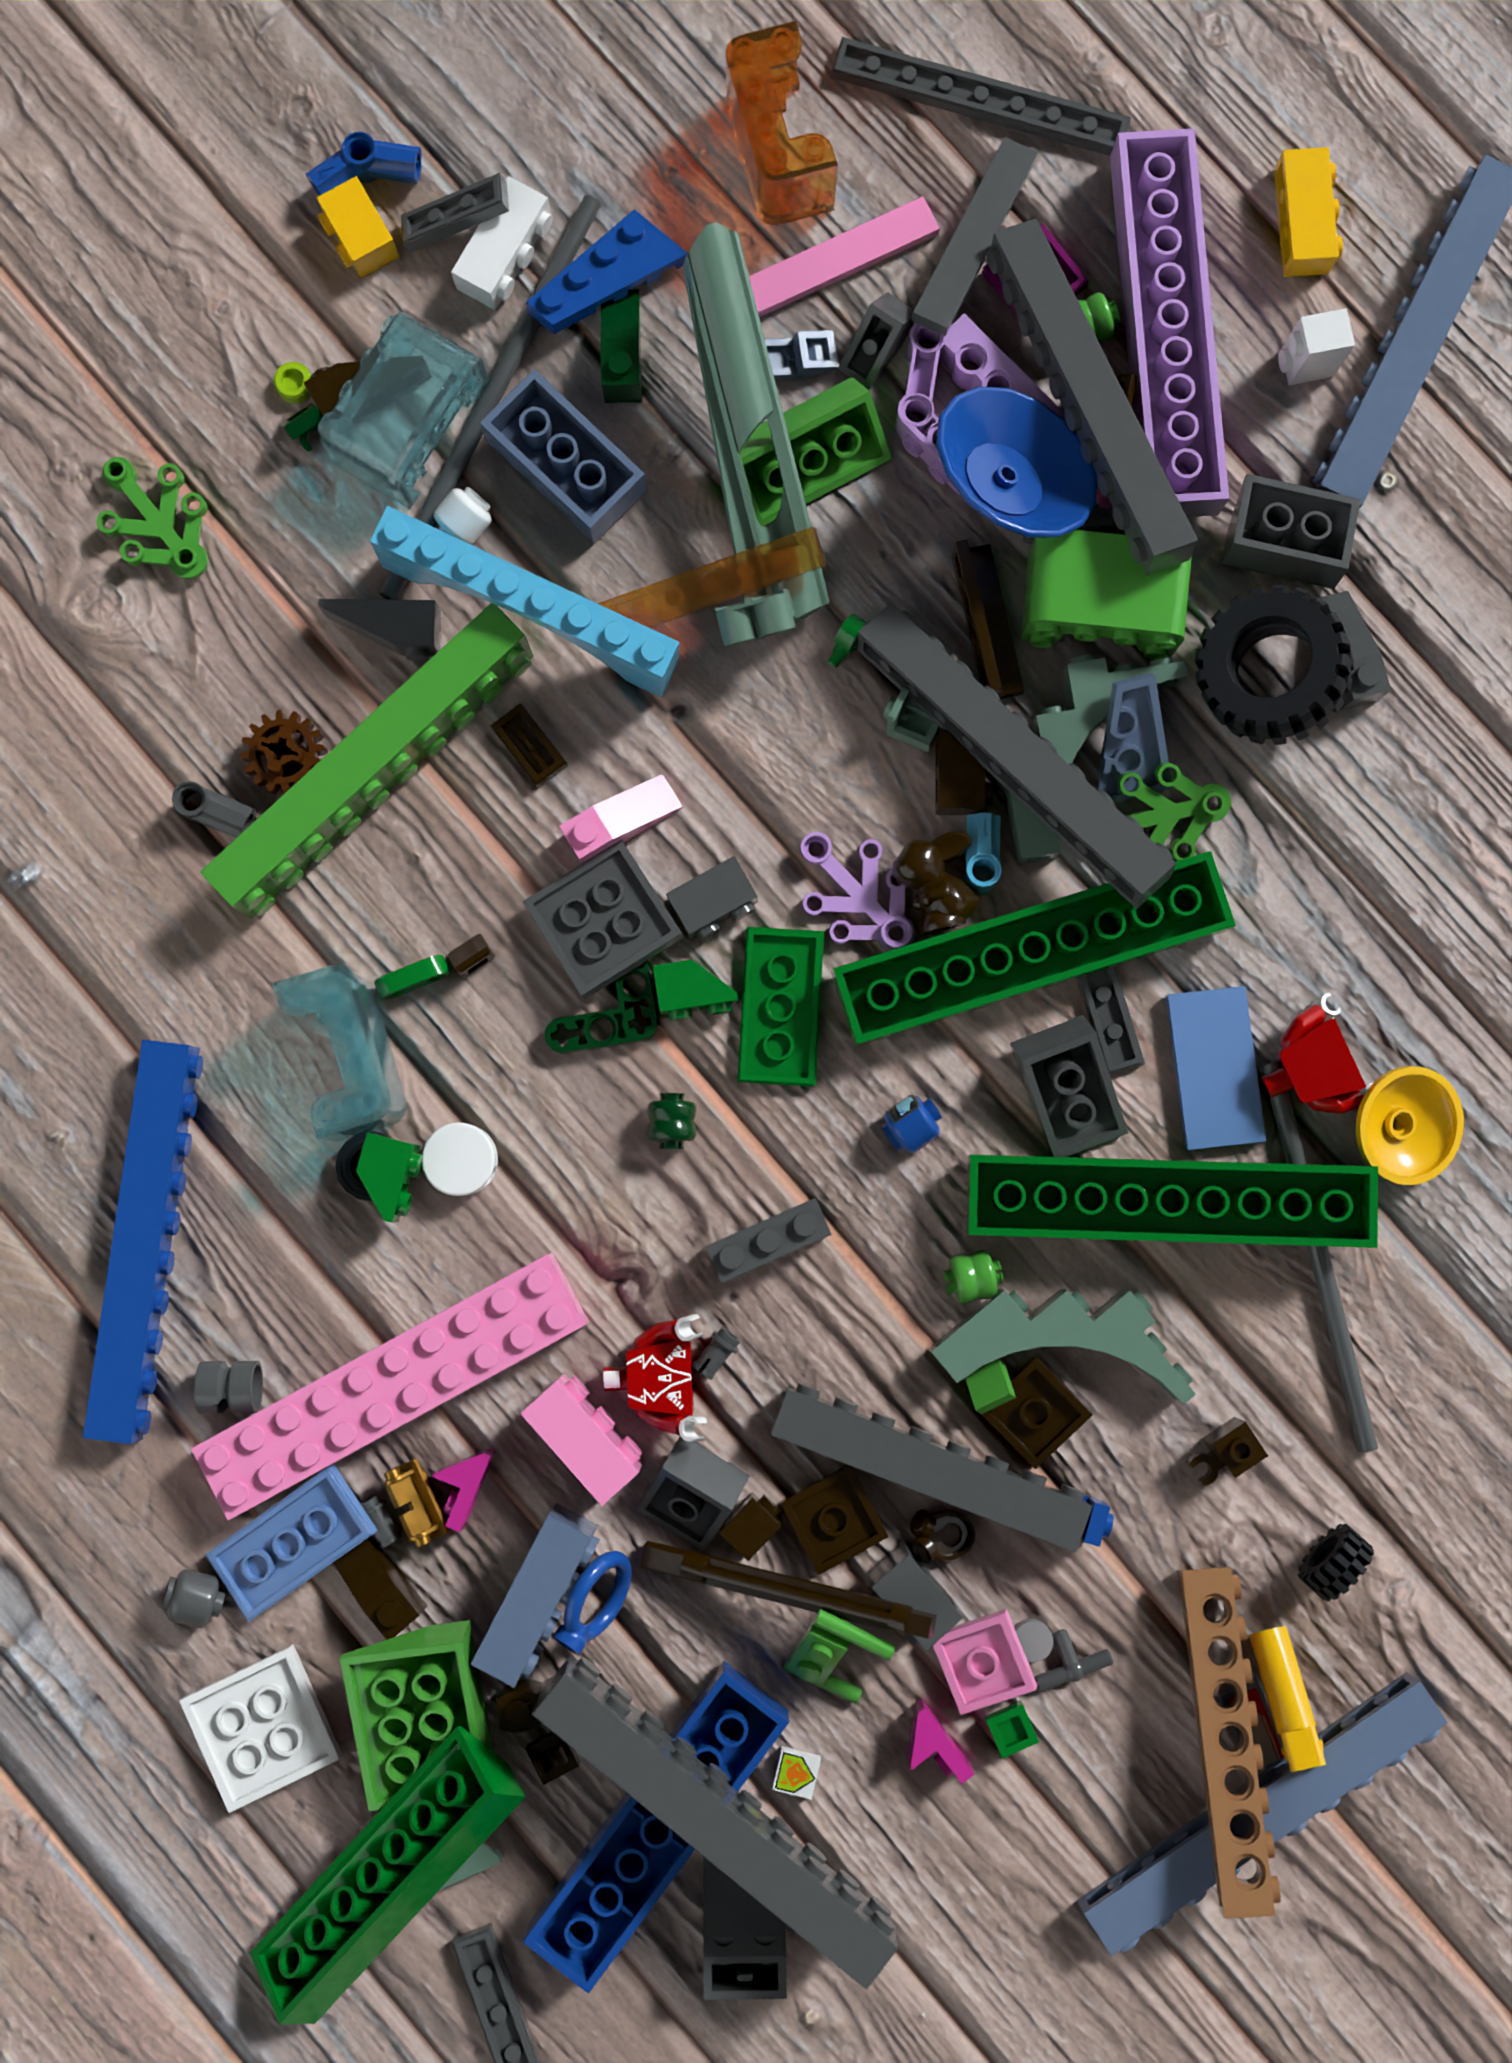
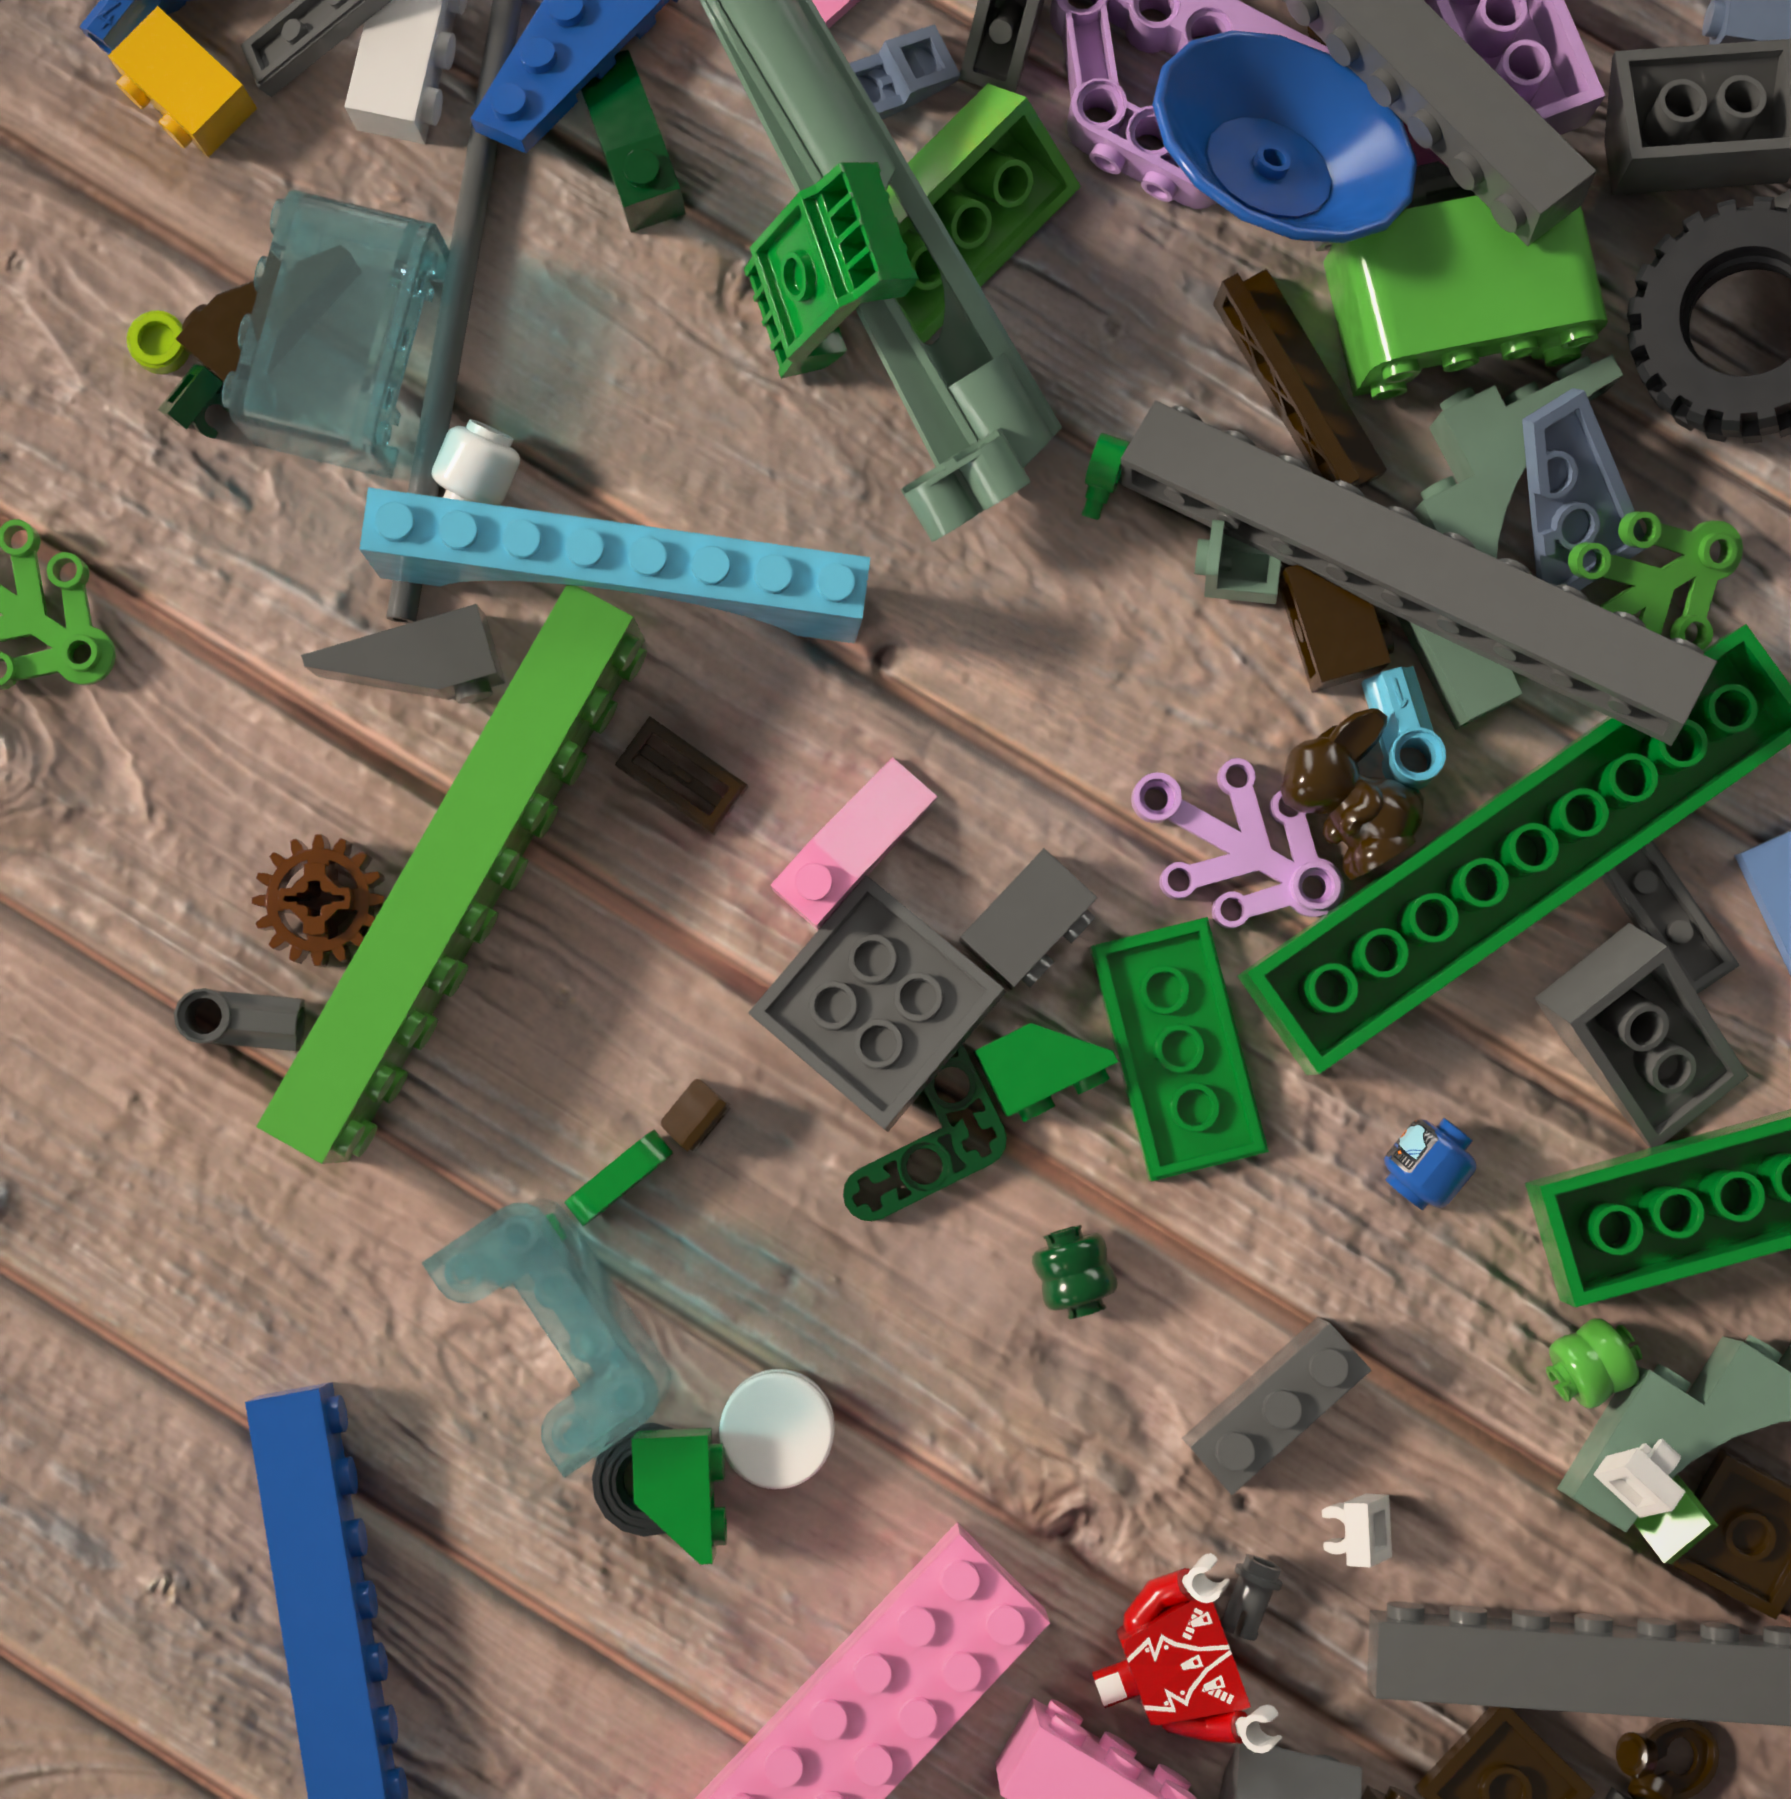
camera: 20 degrees left, 0 degrees up
(564, 455) = (599, 329): sand blue brick -> none
(711, 451) = (825, 259): none -> green plate
(722, 580) = (895, 444): clear orange tile -> none
(799, 1333) = (1366, 1530): none -> white tile
(974, 1350) = (1642, 1478): none -> white tile

